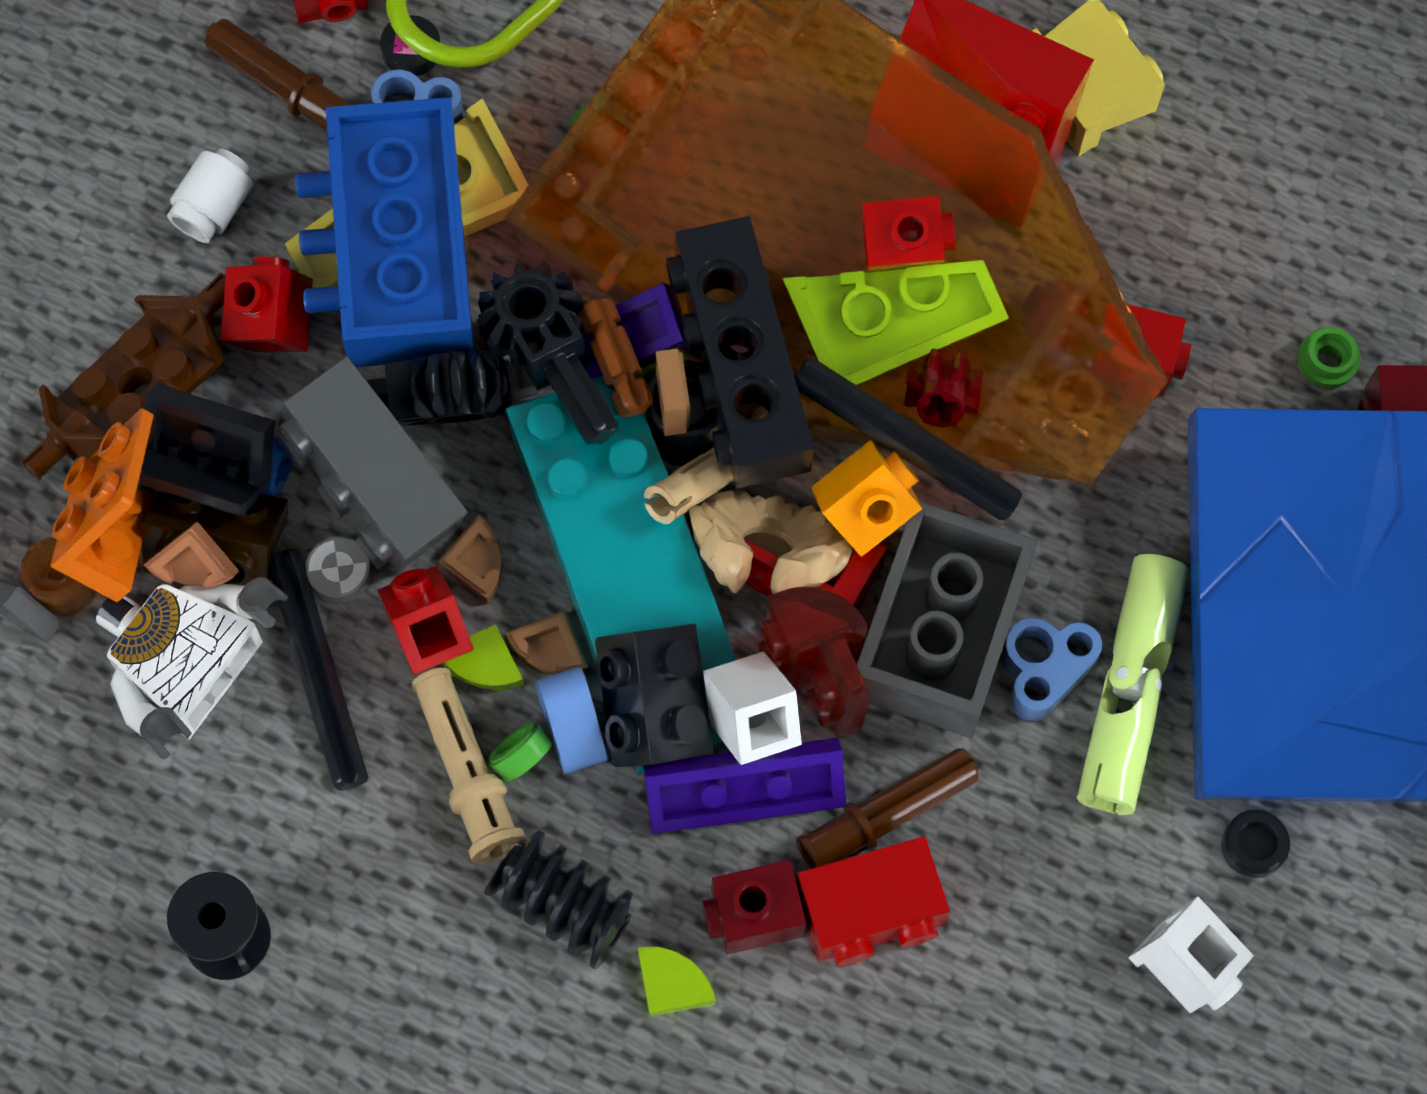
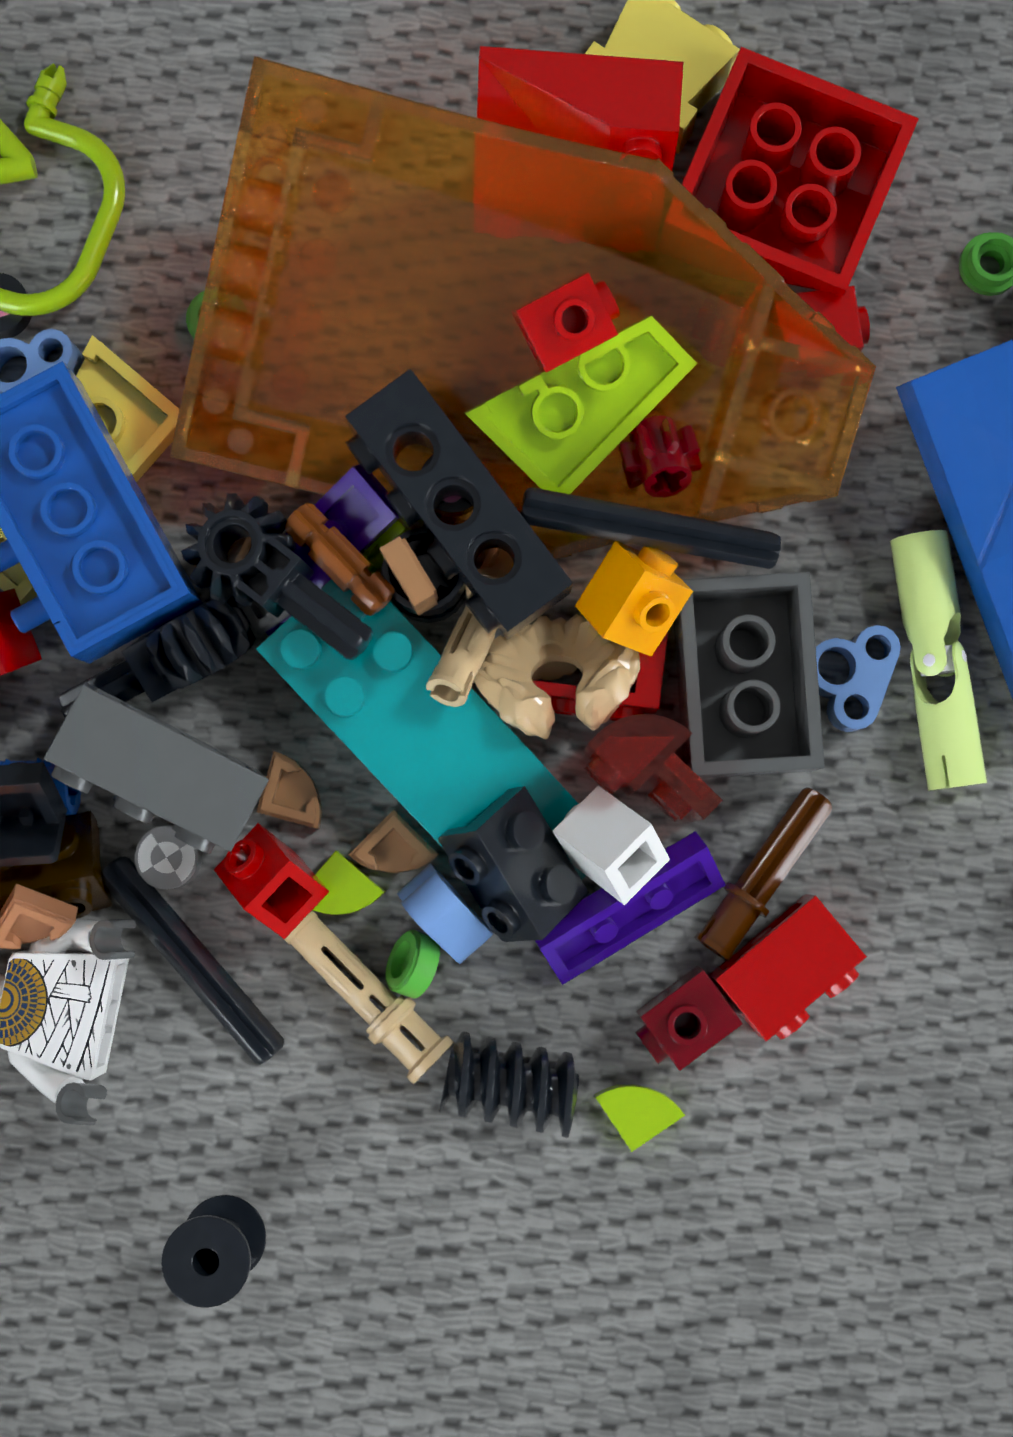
camera: 15 degrees left, 15 degrees up
(1175, 202) = (798, 168): none -> red slope

